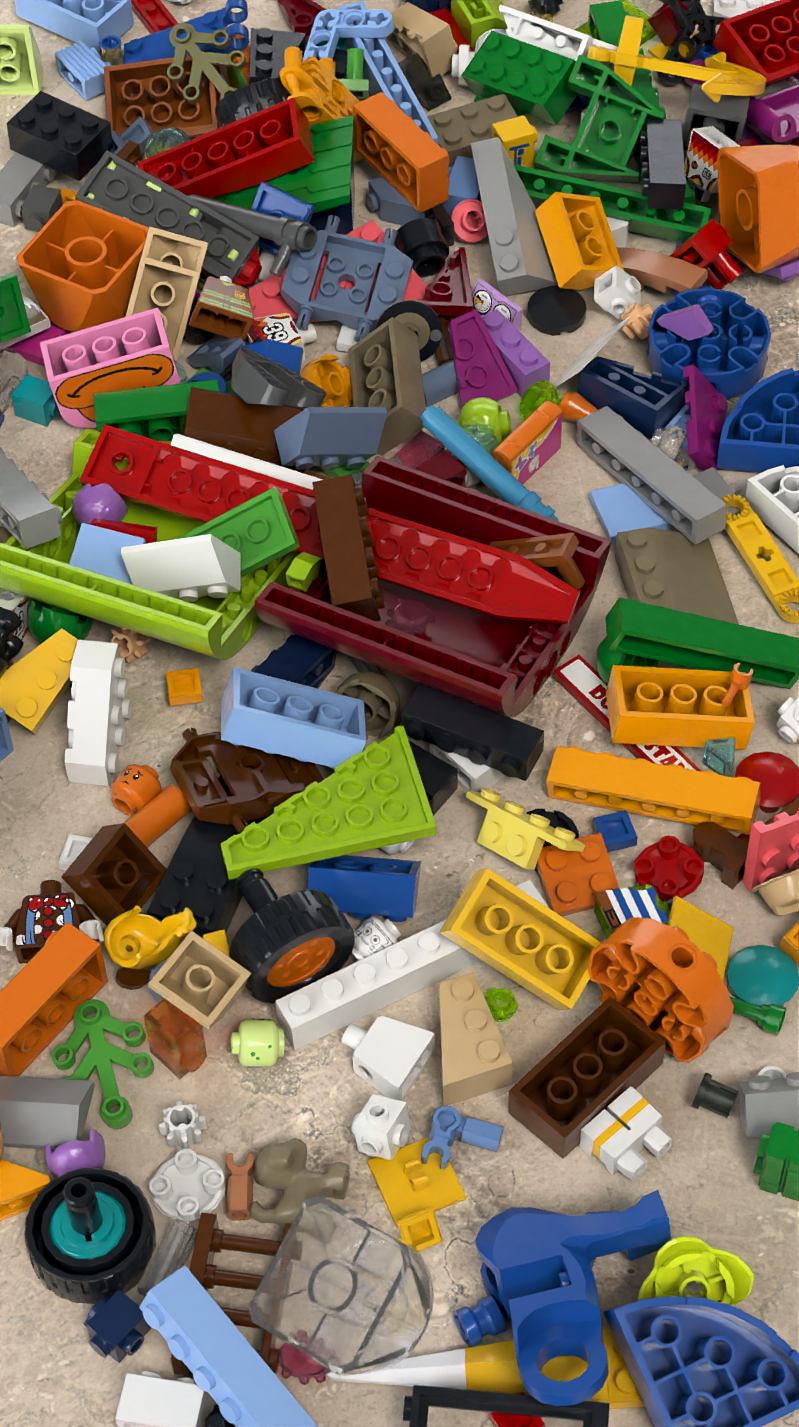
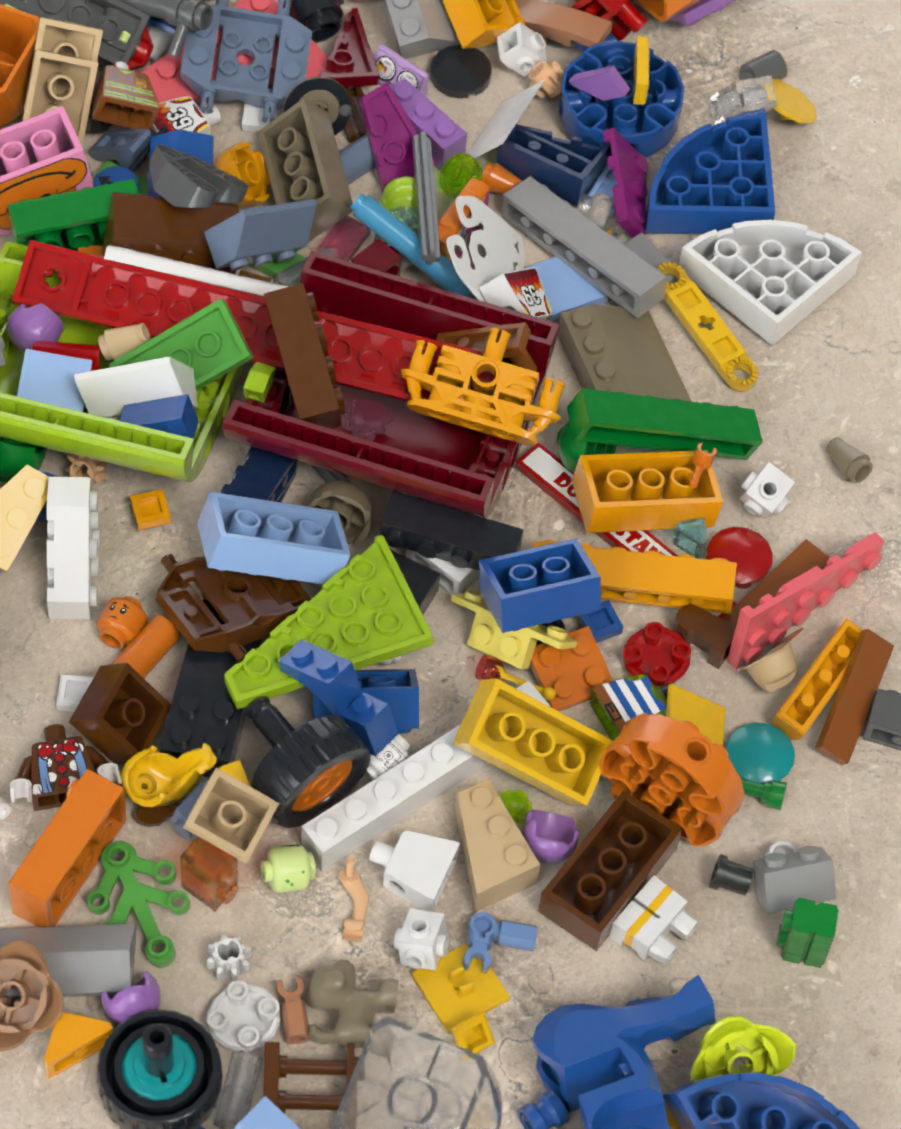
camera: 15 degrees left, 5 degrees up
(177, 523) = (121, 340): none -> tan cone
(208, 592) = (168, 414): none -> blue brick
(322, 1064) = (353, 884): none -> light nougat piece
(331, 867) = (338, 687): none -> blue arch
(497, 416) = (426, 198): none -> axle
(501, 866) = (492, 668): none -> hinge
(529, 1036) = (550, 836): none -> medium lavender hair
(533, 610) = (477, 410): none -> light orange piece
(552, 785) = (540, 585): none -> blue brick
(559, 491) = (496, 238): none -> white piece
(577, 508) = (518, 292): none -> white torso
(728, 313) = (641, 70): none -> yellow tile

